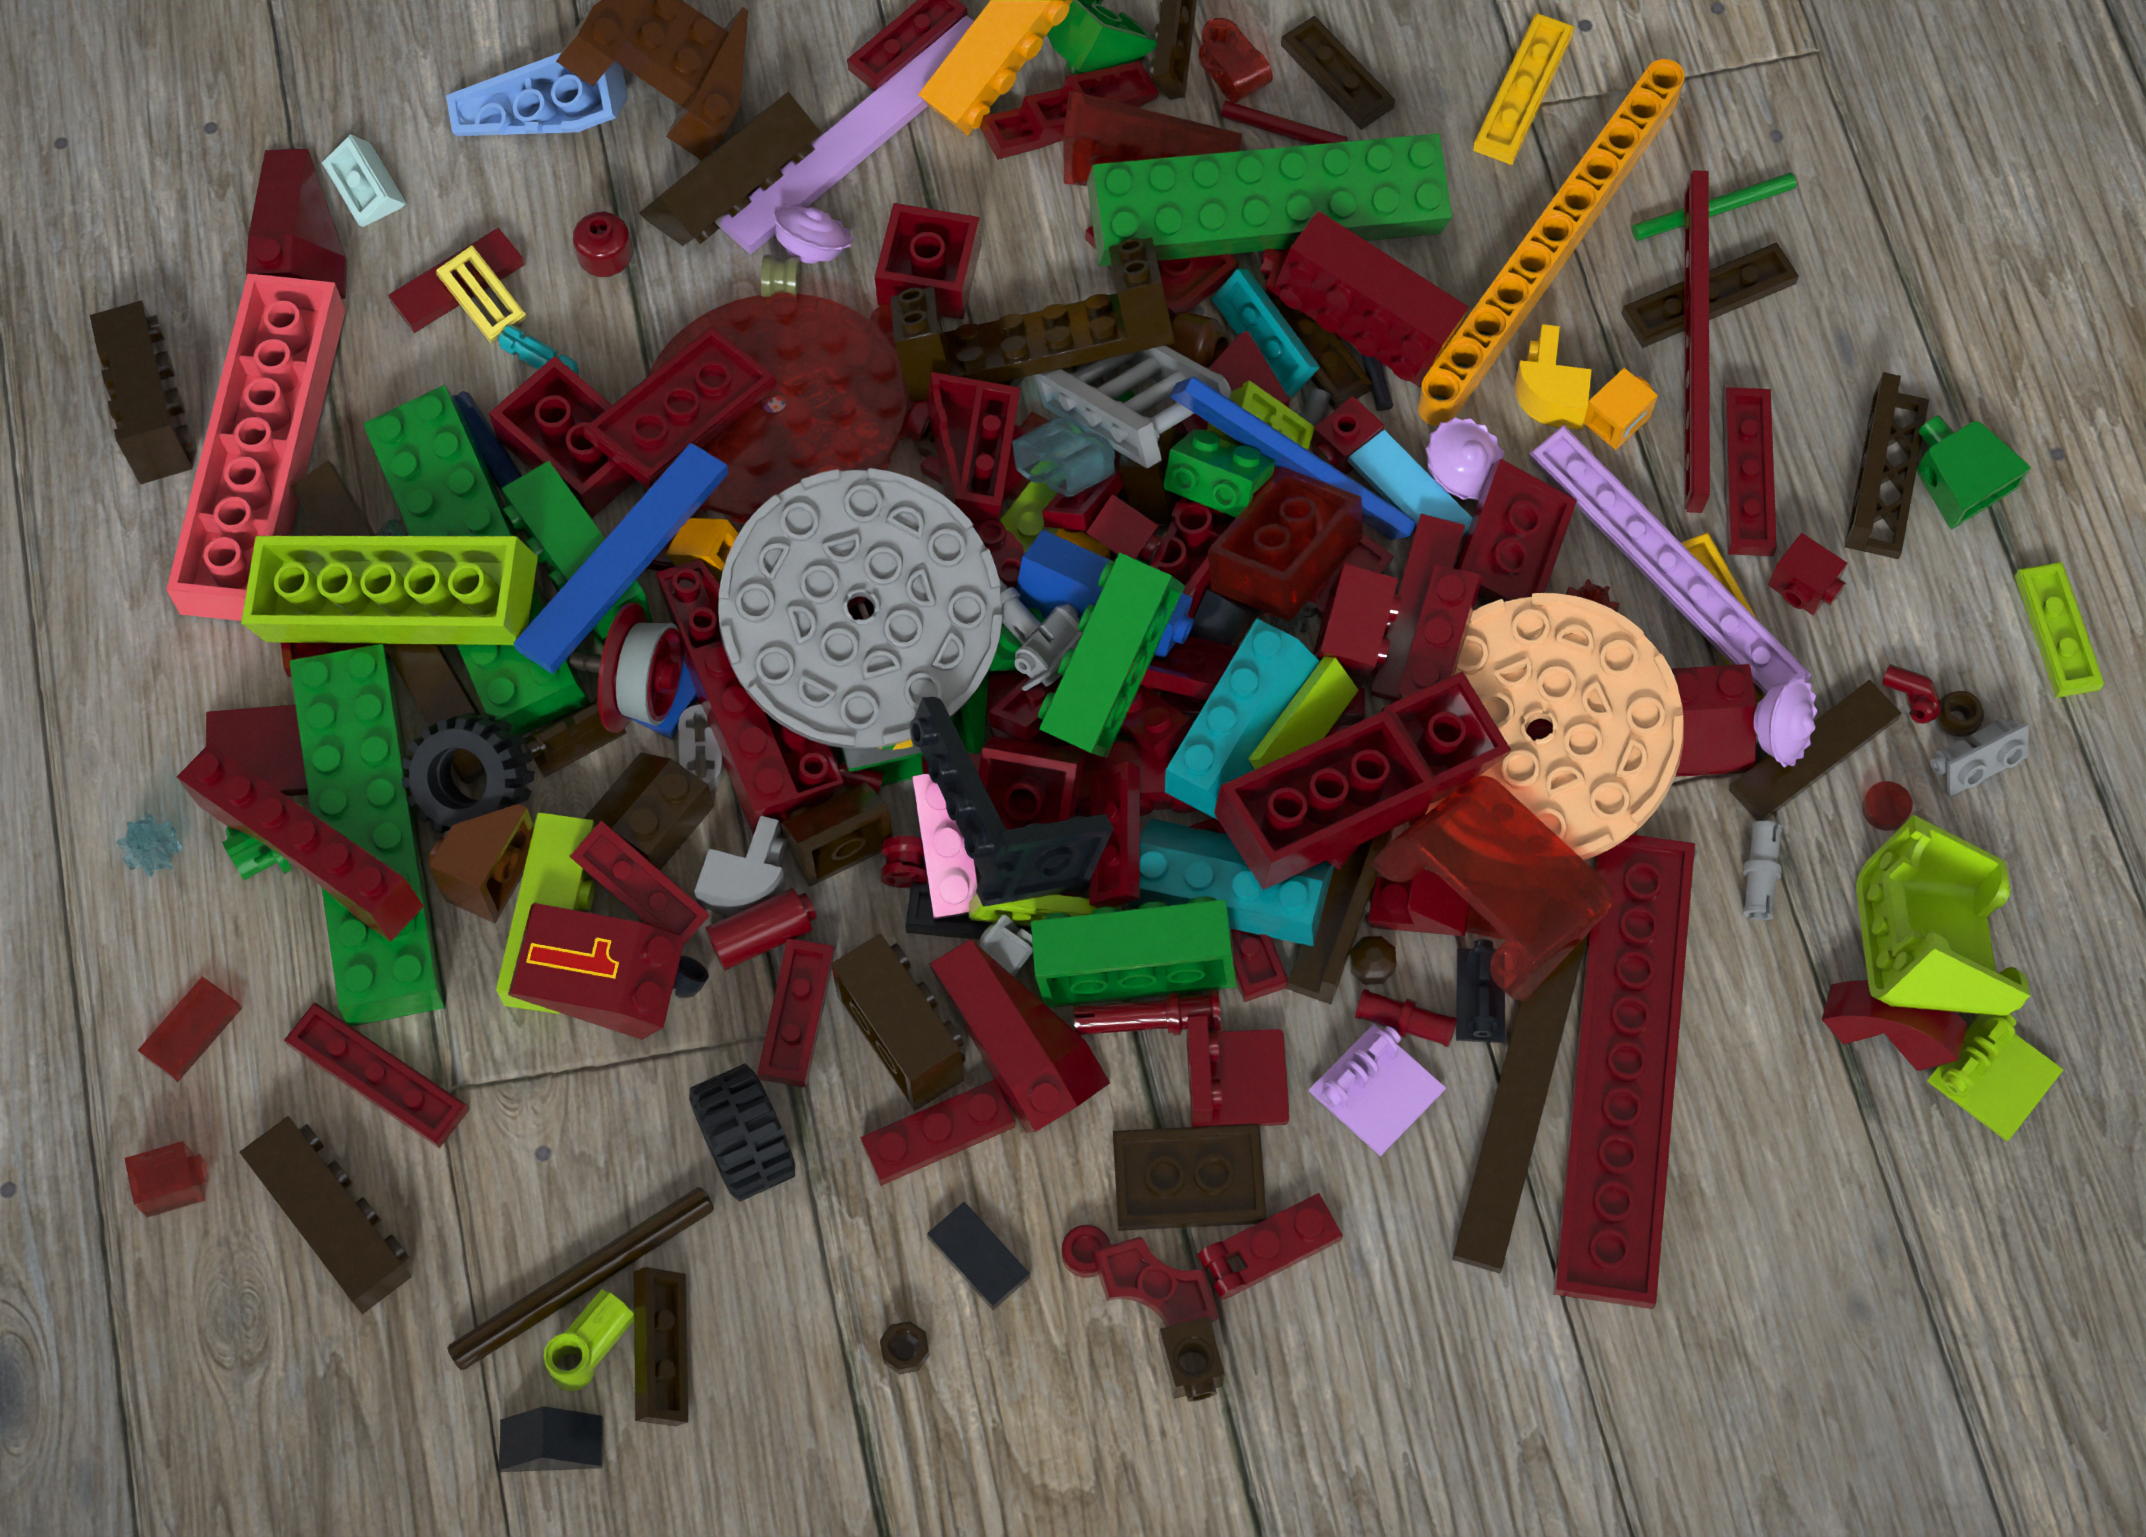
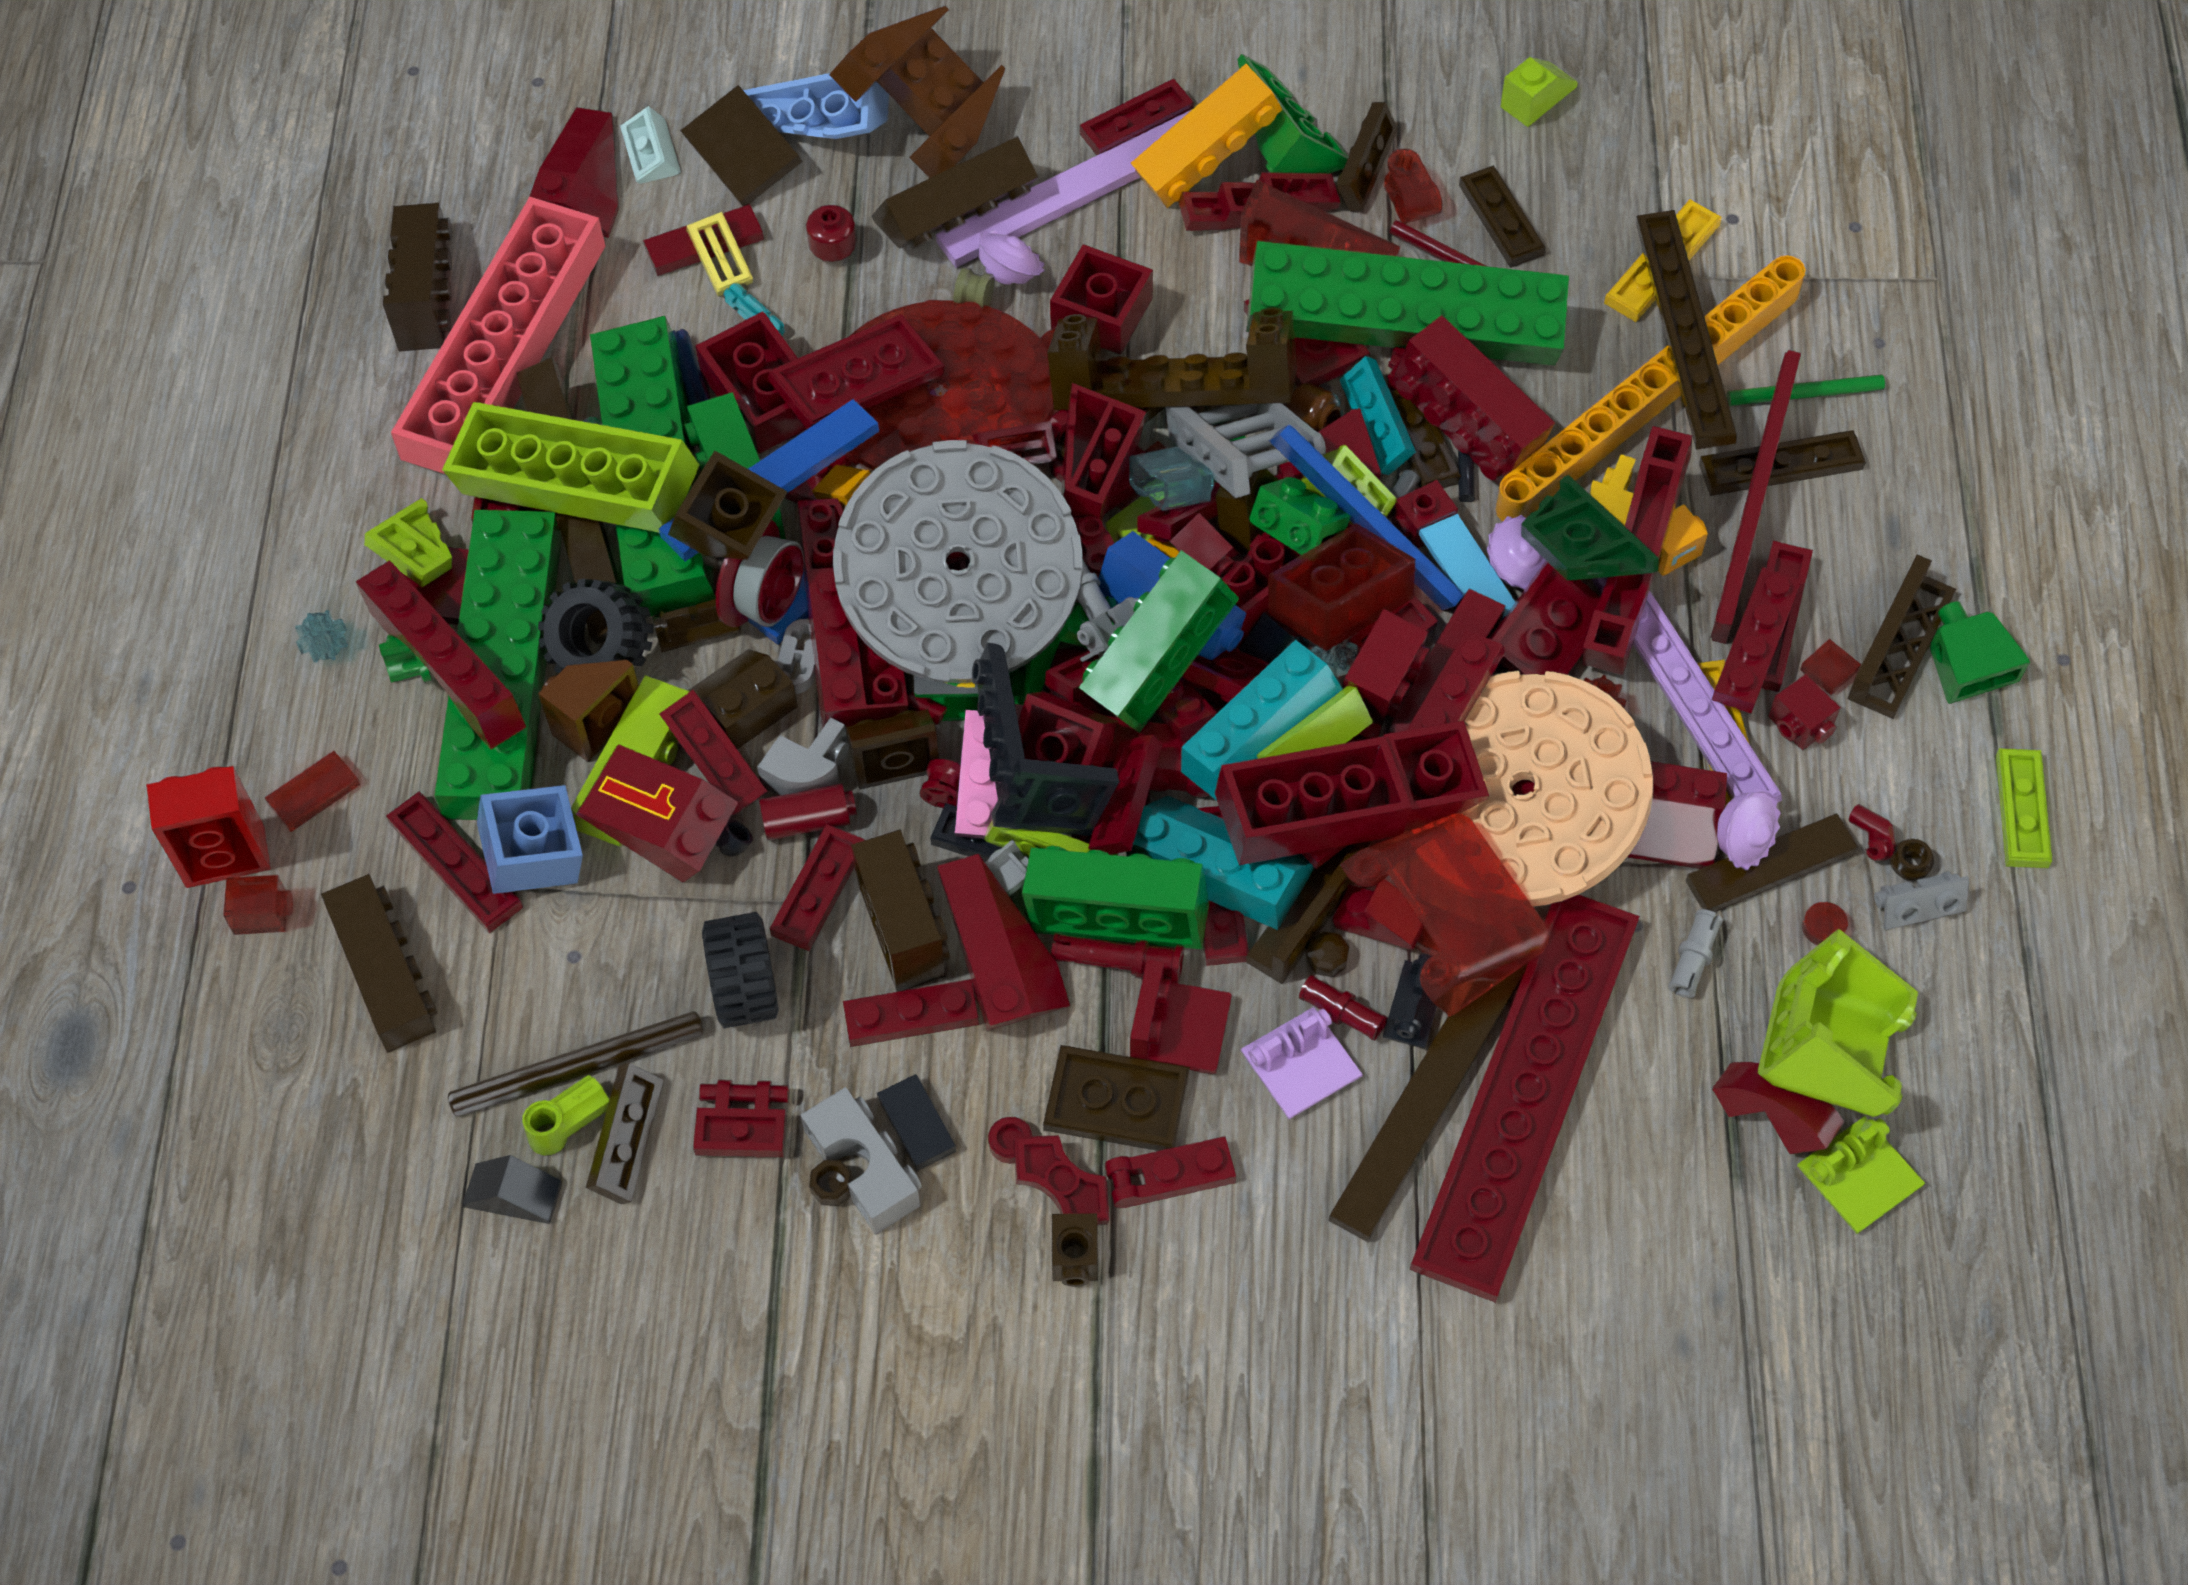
camera: 15 degrees right, 5 degrees down
(88, 1104) = (208, 826): none -> red brick
(225, 714) = (411, 544): none -> lime wing
(459, 1033) = (529, 839): none -> medium blue brick
(469, 160) = (741, 146): none -> dark brown tile
(590, 609) = (726, 510): none -> dark brown slope
(787, 1312) = (740, 1130): none -> dark red plate
(903, 1282) = (843, 1128): none -> light grey arch
(914, 440) = (1048, 441): none -> dark red tile
(1532, 431) = (1584, 537): none -> dark green wing
(1576, 168) = (1686, 330): none -> dark brown tile
(1593, 433) = (1648, 519): none -> dark red arch
(1740, 505) = (1756, 640): none -> dark red plate
(1819, 515) = (1830, 667): none -> clear red tile

